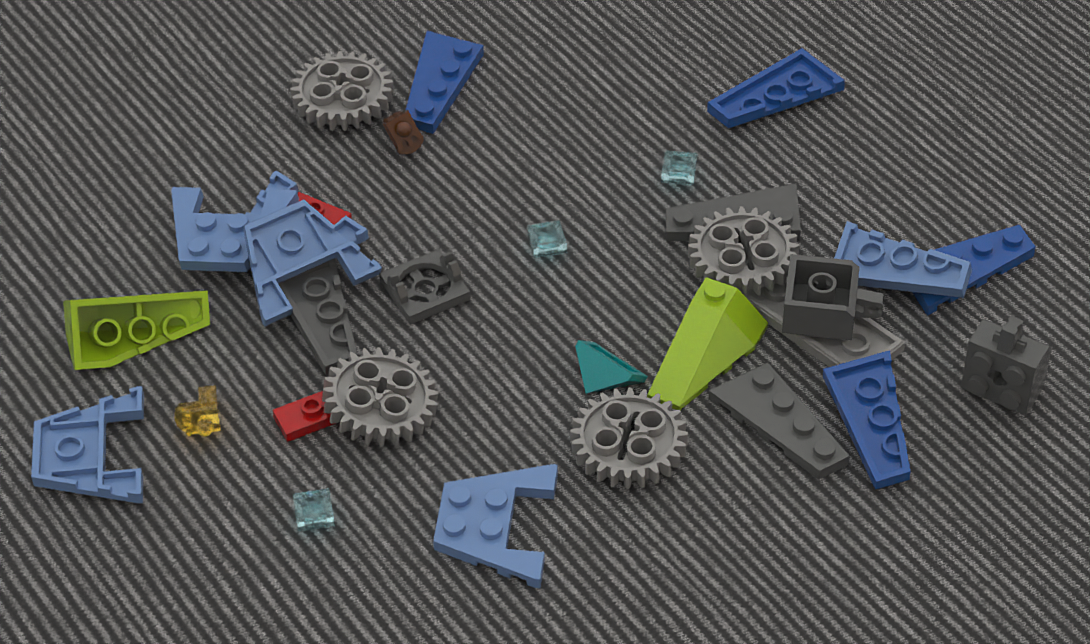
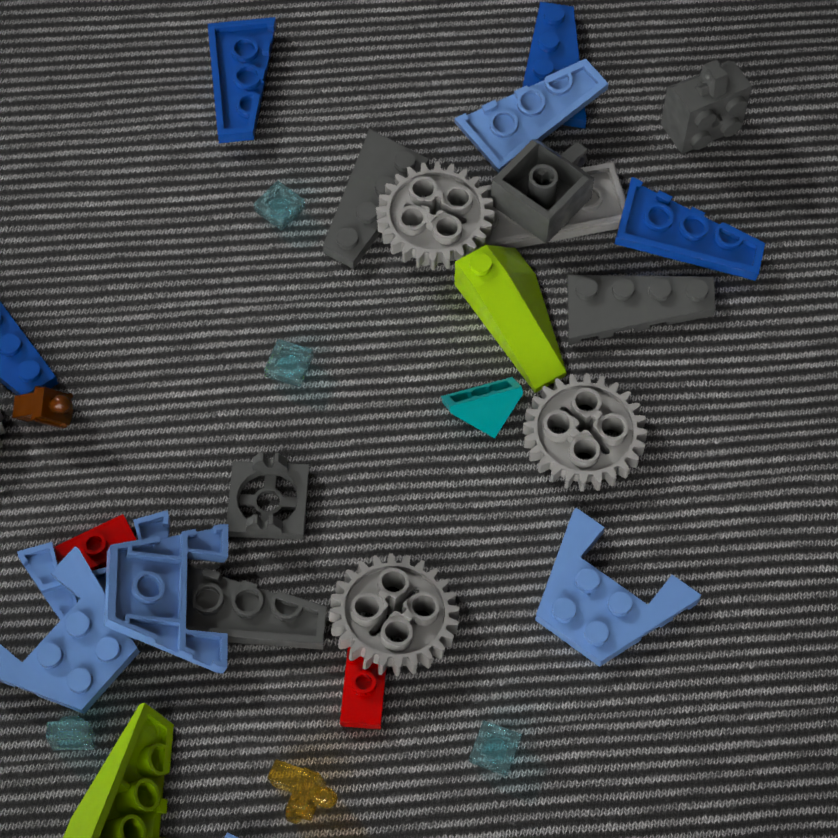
camera: 60 degrees left, 15 degrees up
(161, 269) = (70, 734): none -> clear light blue plate

